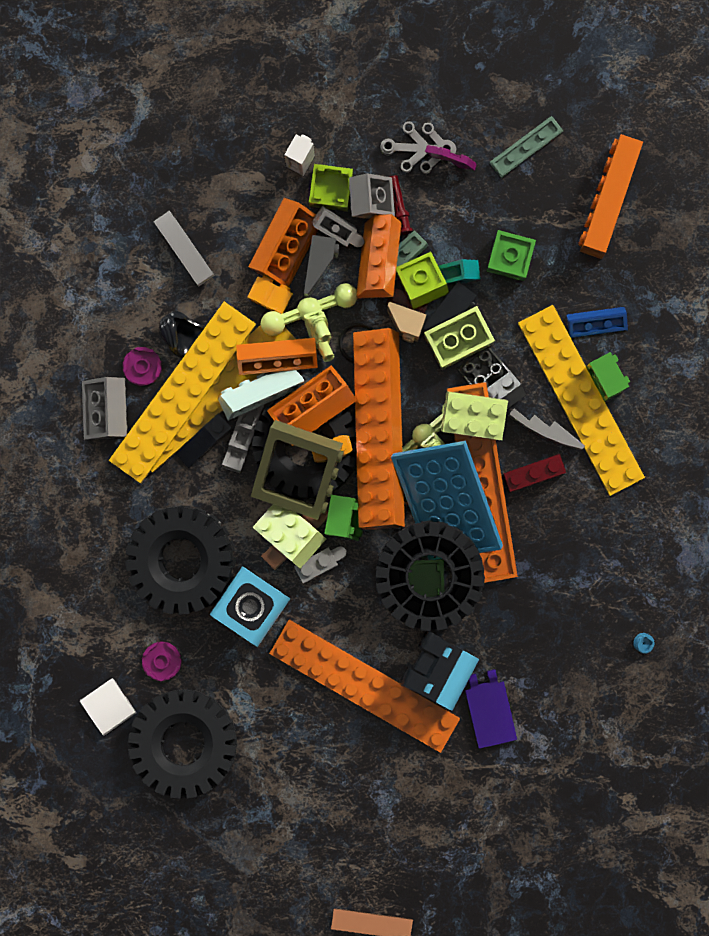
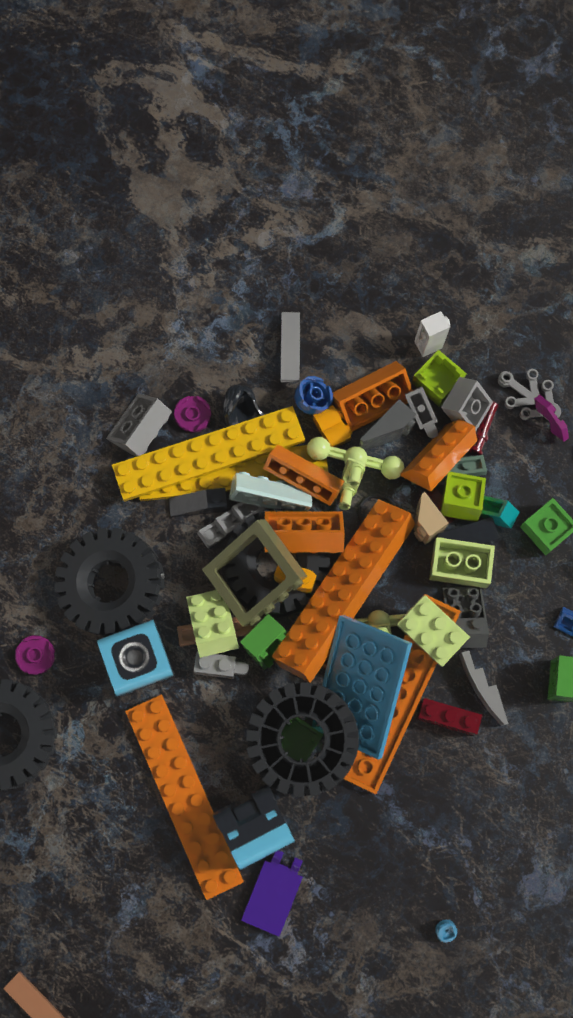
camera: 30 degrees right, 10 degrees down
(235, 280) = (313, 395): none -> blue cylinder
(581, 400) = (529, 686): yellow plate -> none

